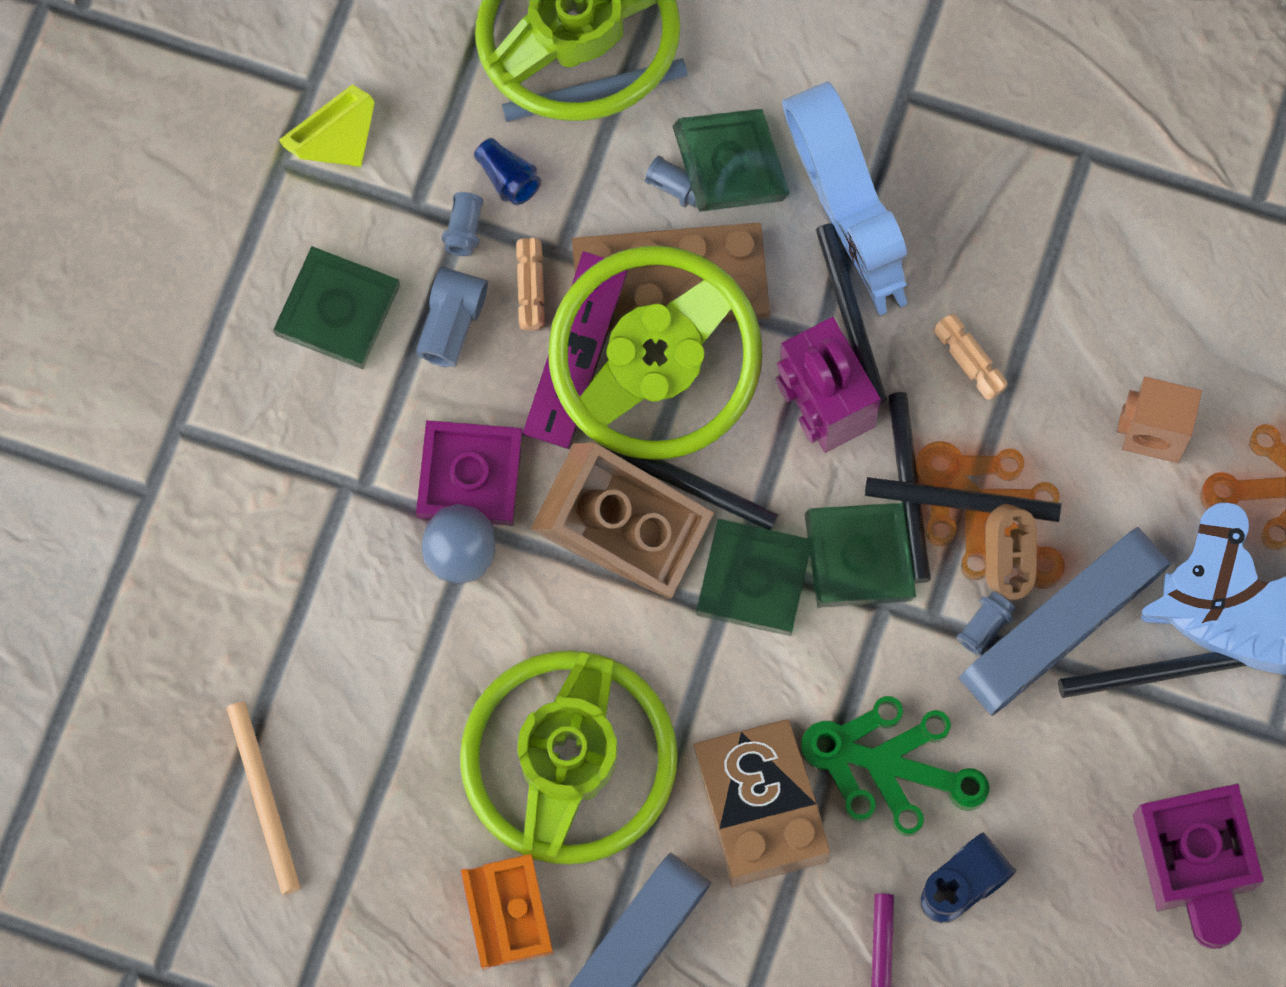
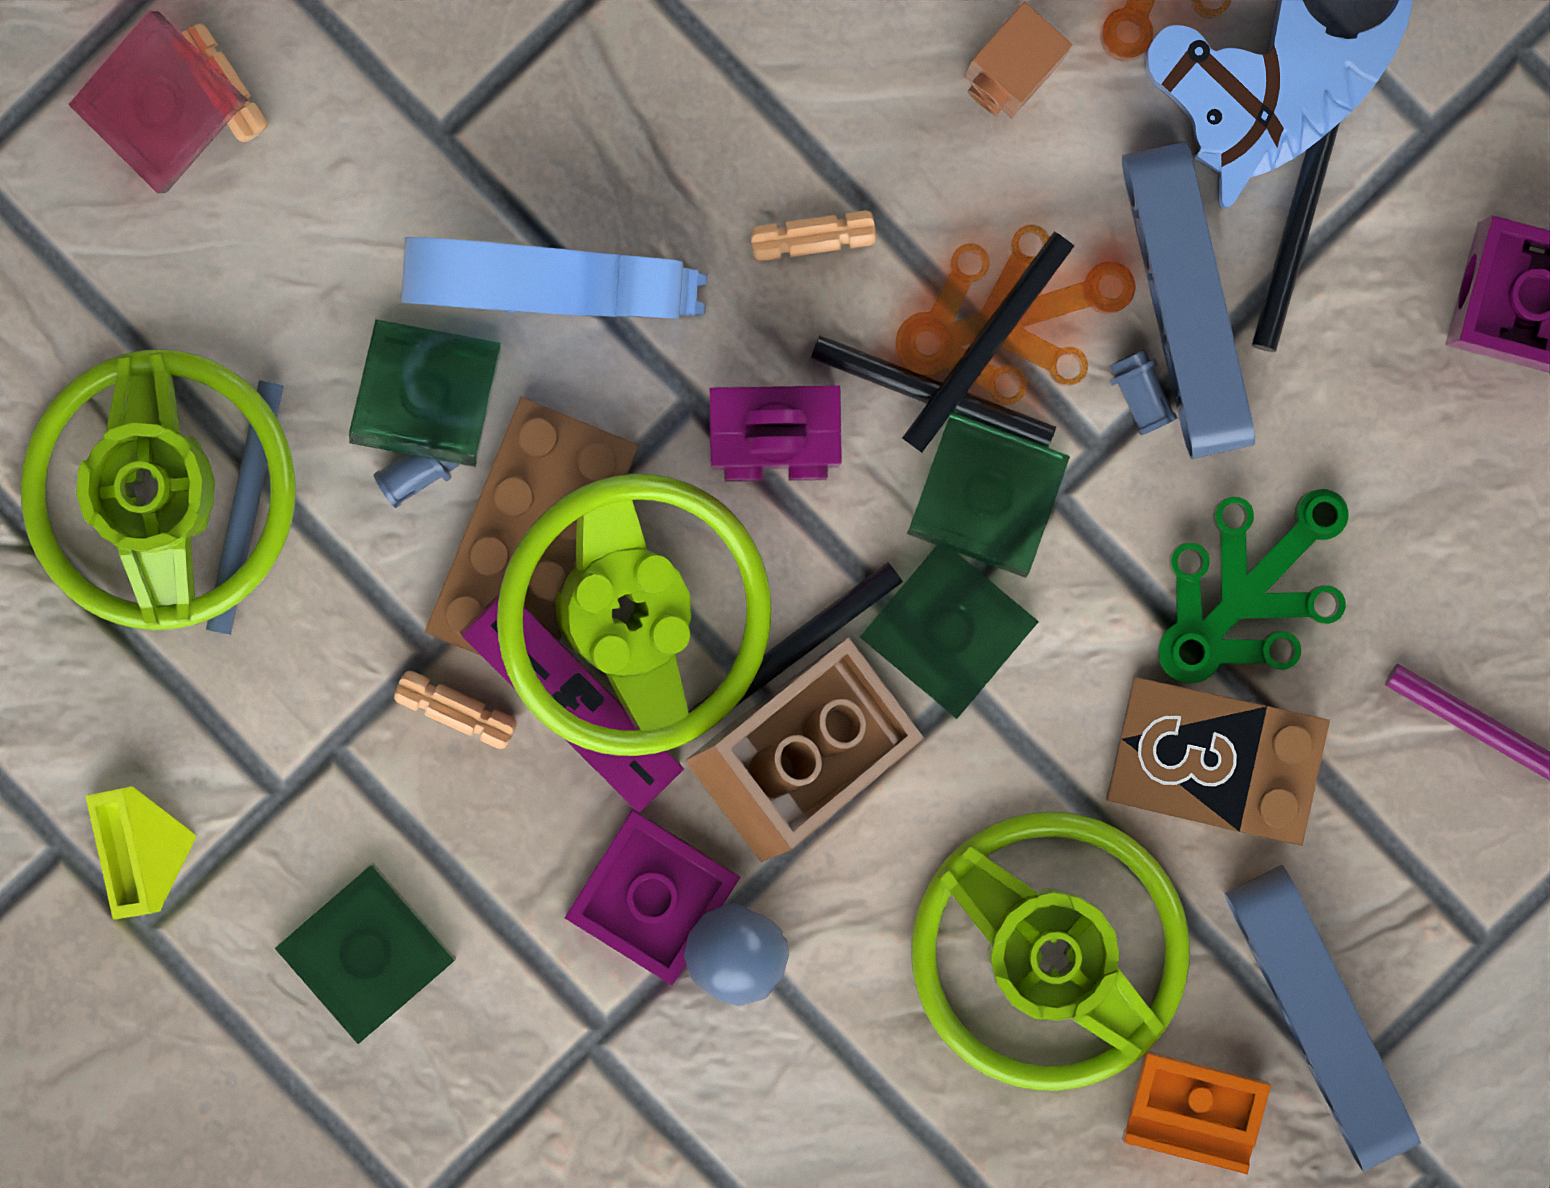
camera: 65 degrees left, 15 degrees up
(453, 304) = (438, 814): sand blue piece -> none
(461, 234) = (339, 752): sand blue pin -> none
(509, 173) = (302, 666): clear blue cone -> none
(848, 305) = (688, 348): black bar -> none
(971, 874) = (1425, 560): dark blue piece -> none
(1011, 551) = (1079, 331): medium nougat beam -> none

